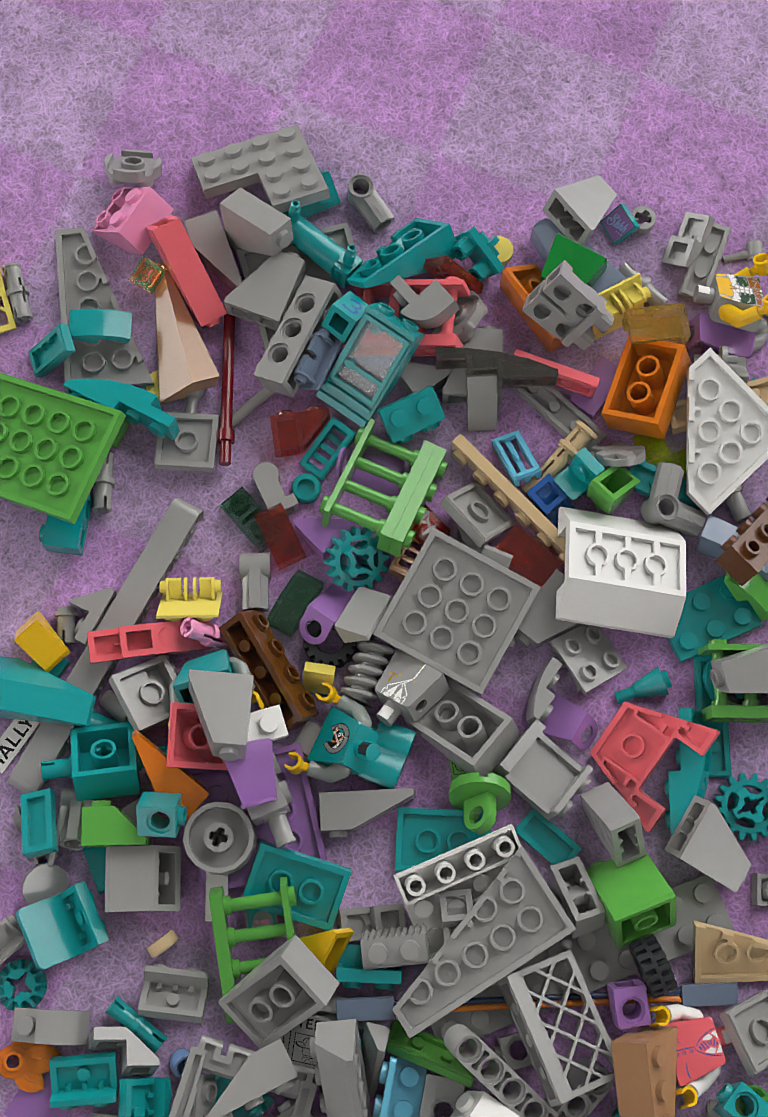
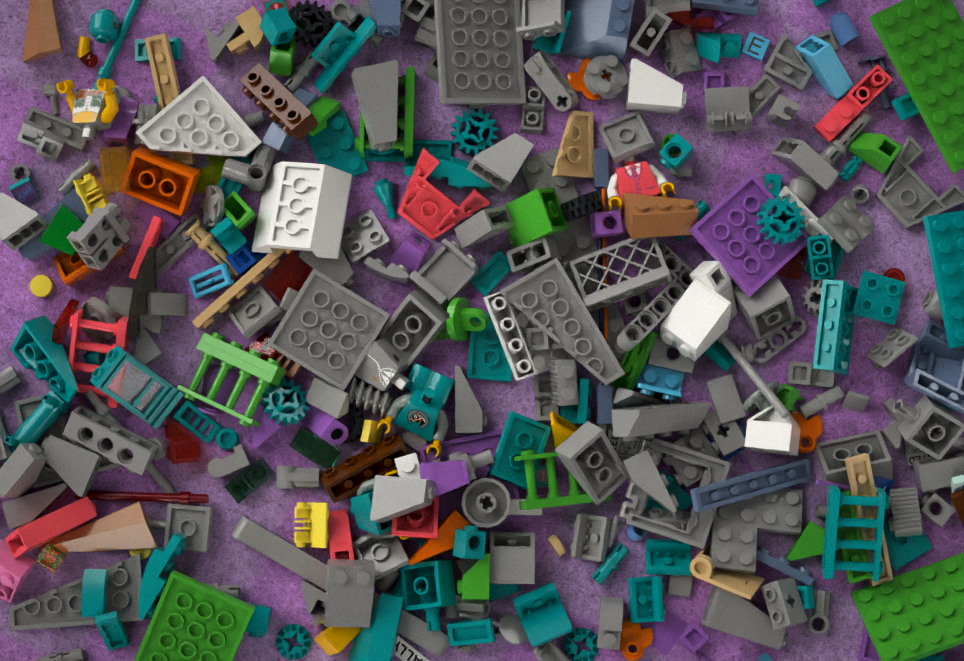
camera: 80 degrees left, 10 degrees up
(39, 596) = (303, 638): none -> teal gear
(93, 648) = (349, 593): none -> light grey slope
(135, 1056) = (629, 565): light grey slope -> none
(187, 1028) = (614, 527): none -> light grey bar
(206, 633) = (337, 513): bright pink pin -> none
(280, 536) = (265, 458): clear red tile -> none
(290, 403) = (162, 447): none -> light grey tile
(312, 371) = (139, 429): sand blue hinge -> none
(344, 316) = (99, 403): teal brick -> none
(411, 414) = (175, 357): teal bracket -> none
(427, 309) = (97, 342): light grey brick -> none
(480, 251) = (45, 298): teal hips -> none

